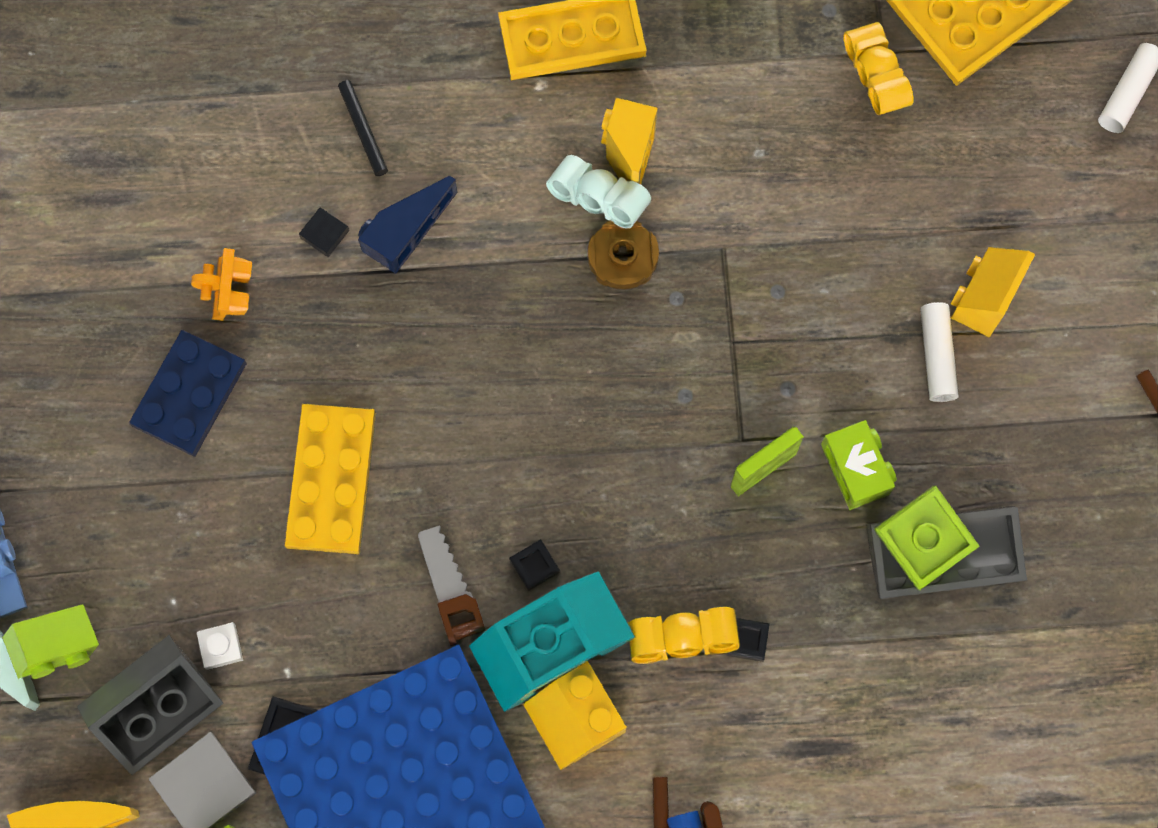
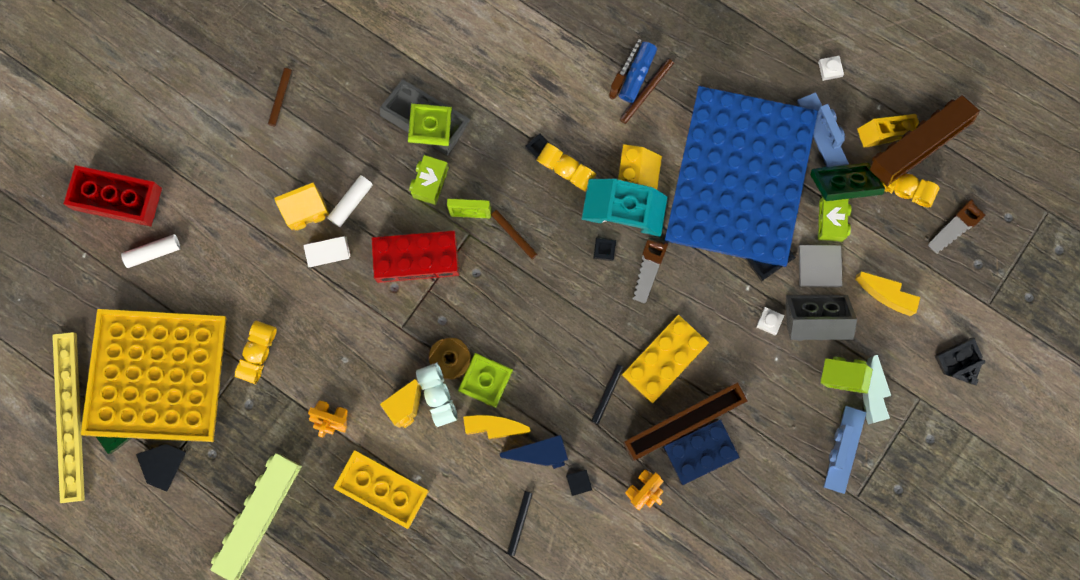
camera: 140 degrees left, 5 degrees up
(236, 407) = (685, 422): none -> reddish brown brick
(374, 371) = (607, 394): none -> black bar
(490, 213) = (494, 426): none -> yellow slope
(552, 265) = (485, 380): none -> lime tile
(677, 486) = (514, 234): none -> reddish brown bar
(729, 61) = (328, 422): none -> light orange hips
(783, 344) = (415, 256): none -> red brick
(906, 262) = (327, 251): none -> white hinge

